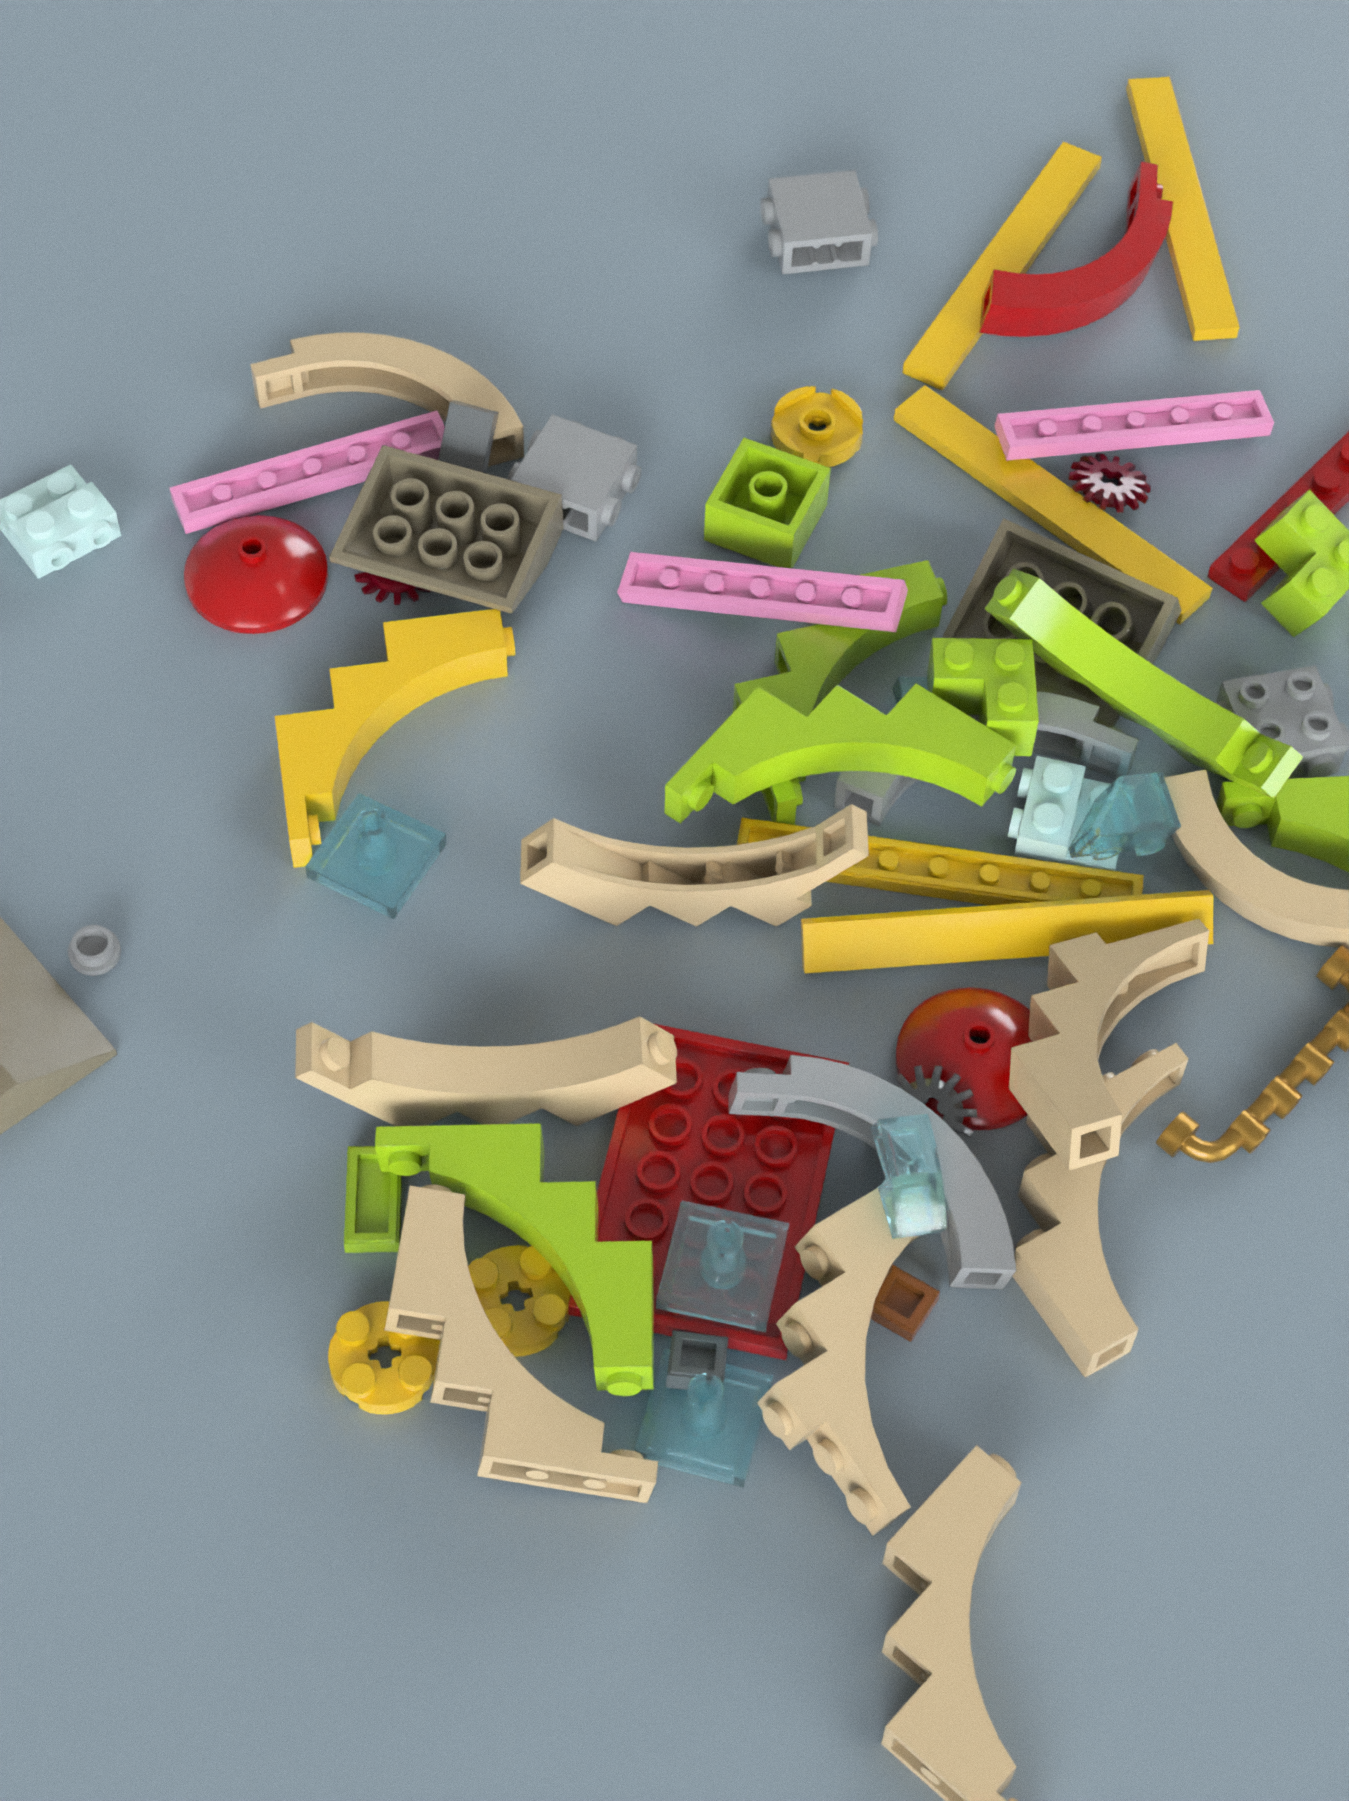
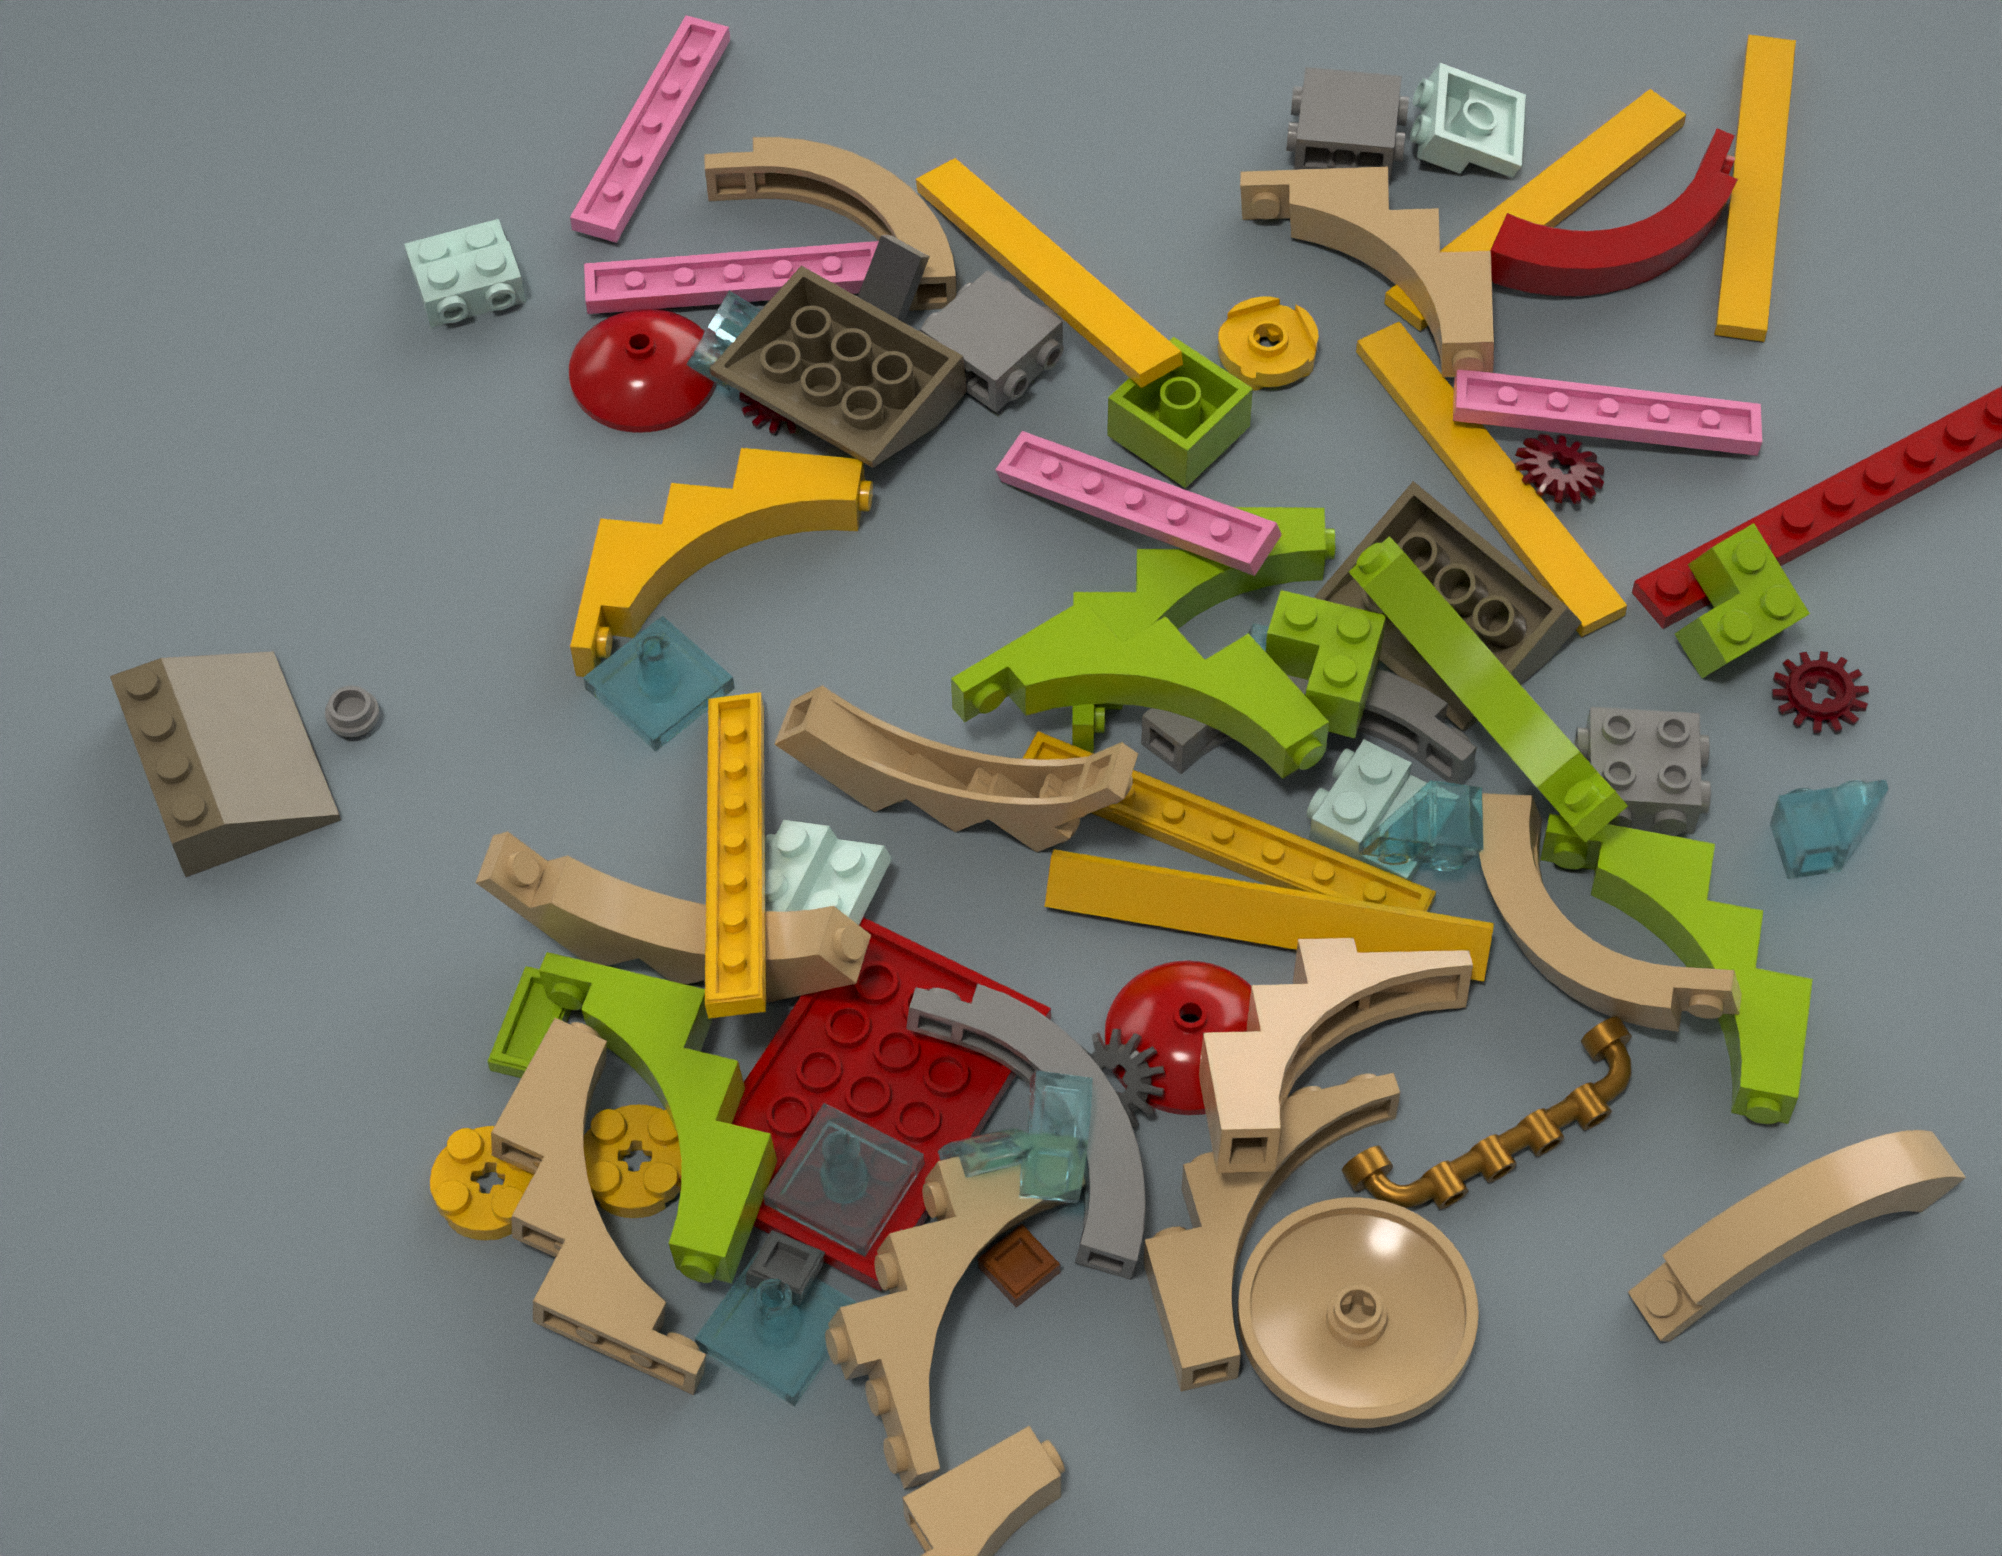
camera: 20 degrees right, 0 degrees up
(185, 354) = (650, 129): none -> bright pink plate
(323, 524) = (726, 325): none -> clear light blue slope
(521, 996) = (735, 857): none -> yellow tile
(588, 992) = (816, 870): none -> light aqua plate
(608, 405) = (1050, 273): none -> yellow tile
(853, 1203) = (989, 1151): none -> clear light blue slope
(856, 301) = (1352, 214): none -> tan arch
(921, 200) = (1468, 122): none -> light aqua plate
(1222, 1264) = (1357, 1312): none -> tan dish

